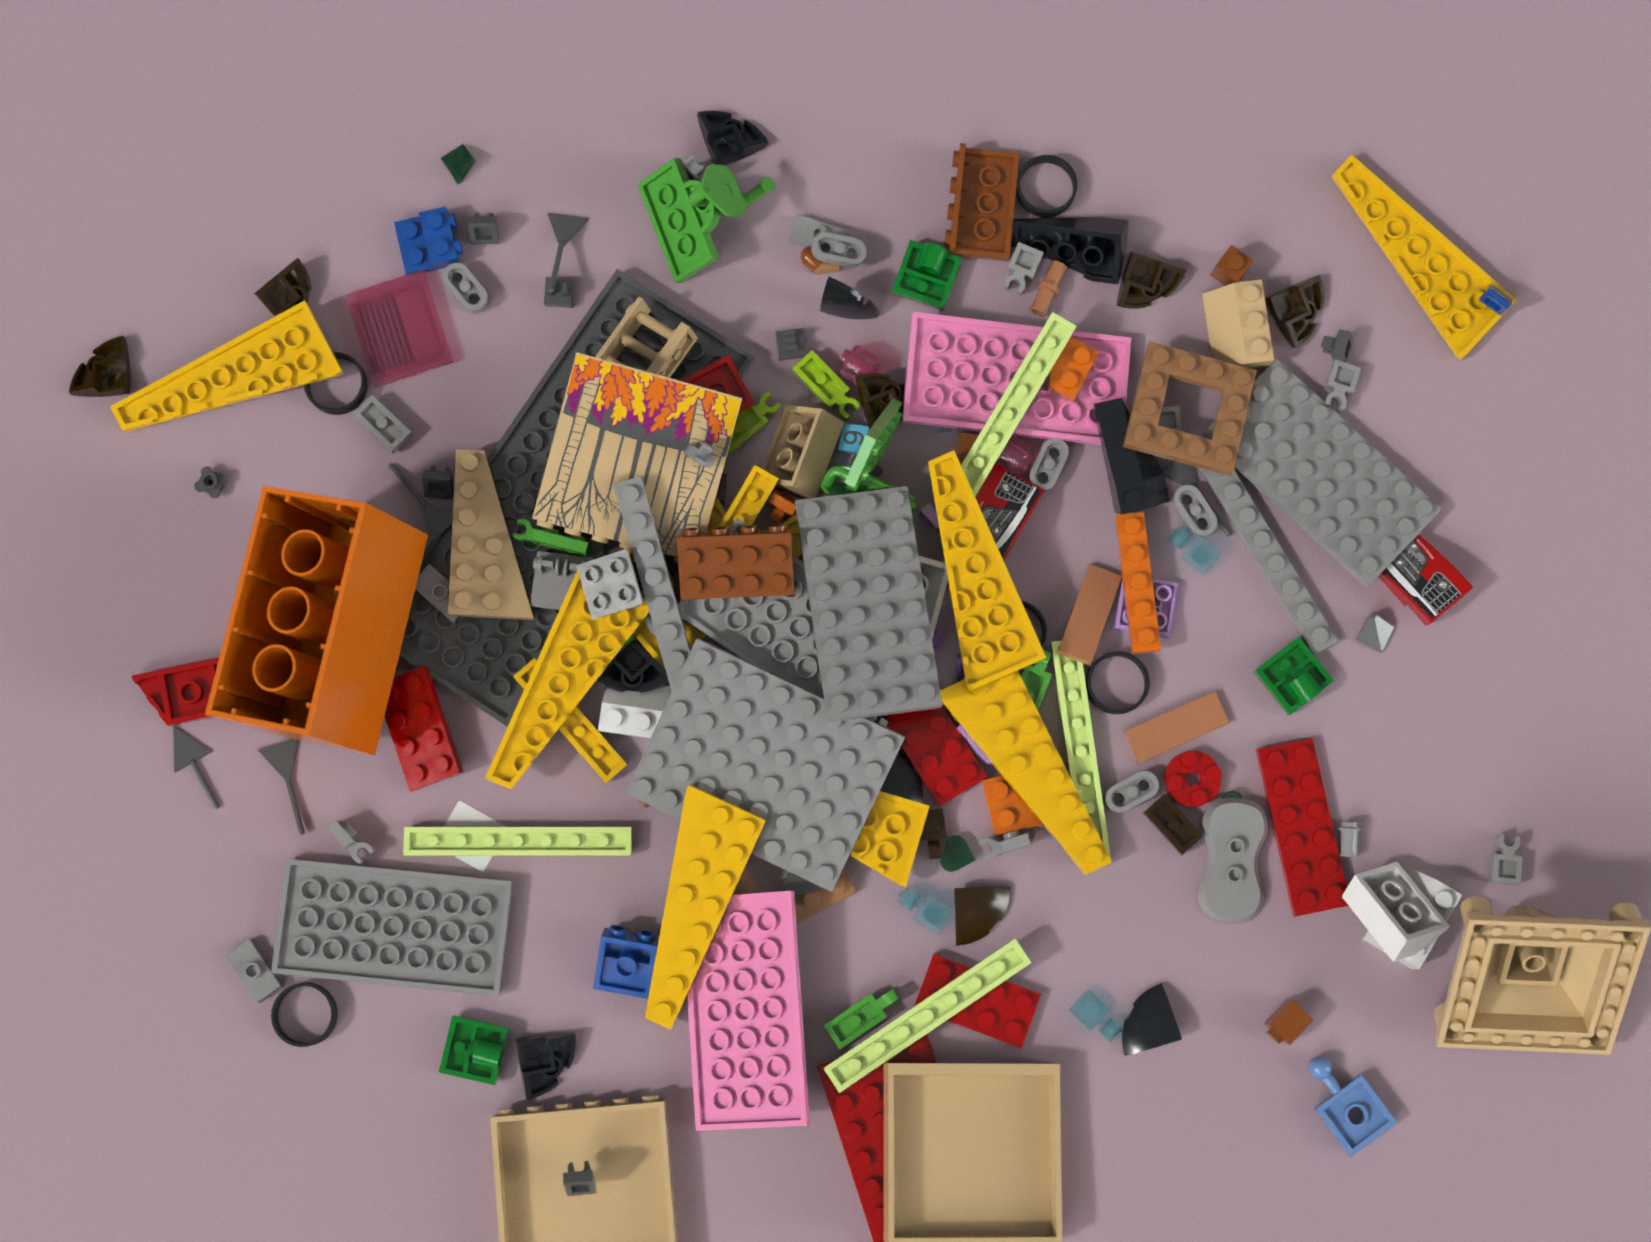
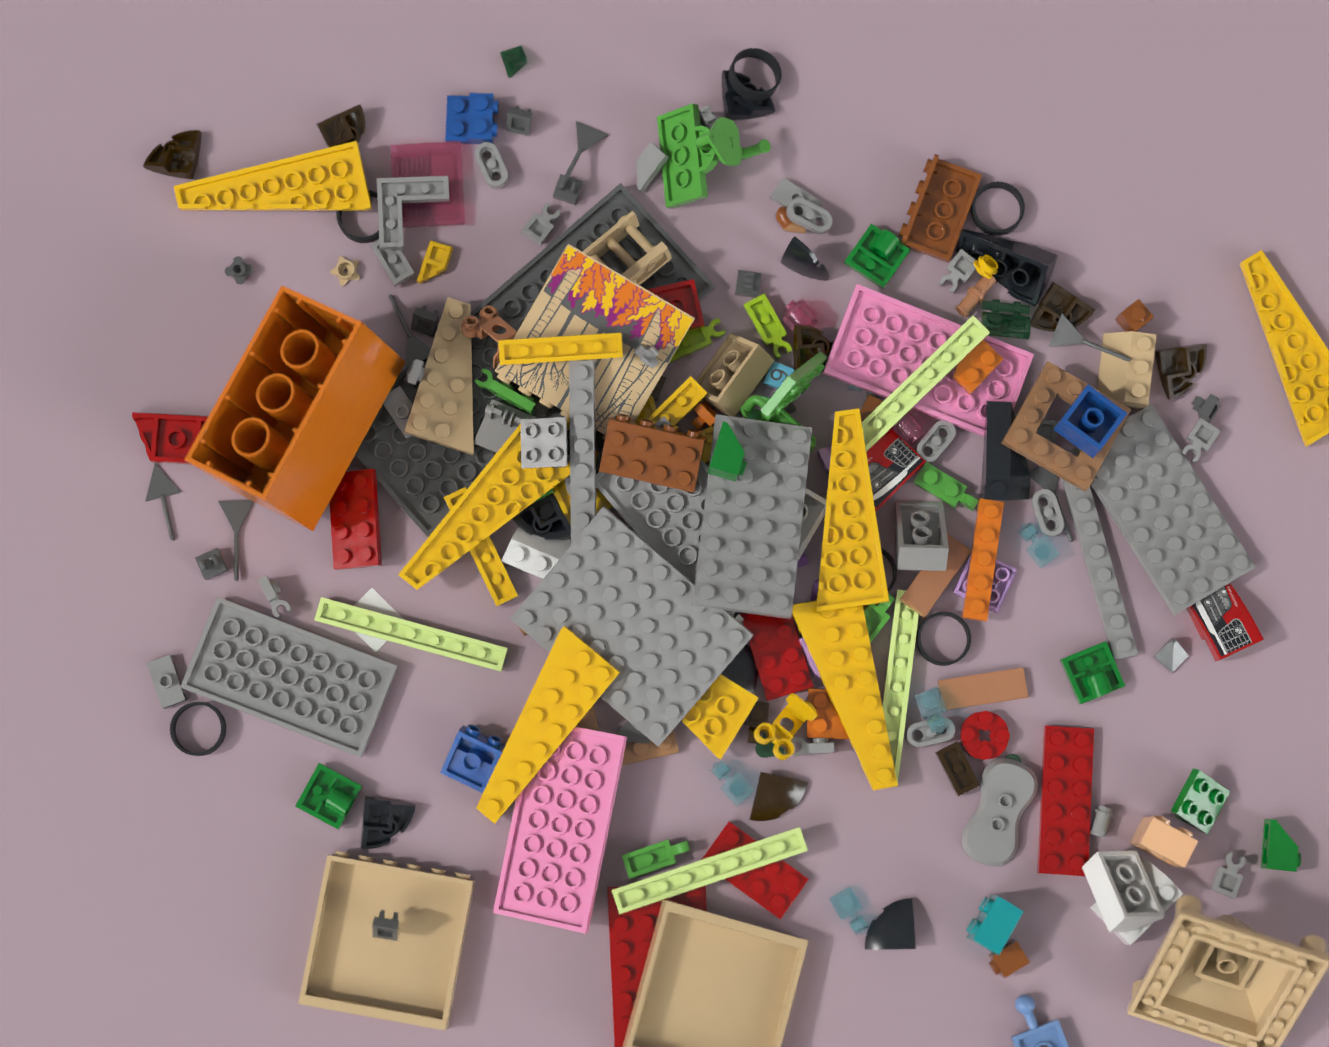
camera: 15 degrees right, 0 degrees up
(269, 823) = (211, 564): none -> dark grey tile
(329, 443) = (341, 266): none -> tan plate
(367, 344) = (394, 192): none -> light grey plate
(431, 412) = (435, 261): none -> yellow tile
(441, 543) = (414, 372): none -> light grey plate
(509, 469) = (486, 325): none -> nougat piece
(539, 342) = (540, 227): none -> light grey plate
(600, 473) = (560, 348): none -> yellow plate
(643, 240) = (649, 165): none -> light grey tile
(740, 85) = (763, 56): none -> black tyre
(821, 543) = (727, 455): none -> green slope
(977, 809) = (798, 712): none -> yellow piece
(1051, 253) = (986, 266): none -> yellow plate
(1061, 575) = (920, 536): none -> light grey slope
(1072, 513) = (944, 487): none -> bright green plate
(1090, 313) = (1006, 325): none -> clear green plate
(1124, 761) = (930, 705): none -> clear light blue plate
(1163, 306) = (1067, 335): none -> dark grey piece
(1216, 395) = (1090, 421): none -> blue brick
(1261, 987) = (993, 923): none -> teal brick
(1424, 842) = (1163, 841): none -> light nougat brick
(1452, 787) = (1200, 801): none -> plate
(1553, 816) = (1278, 848): none -> green slope

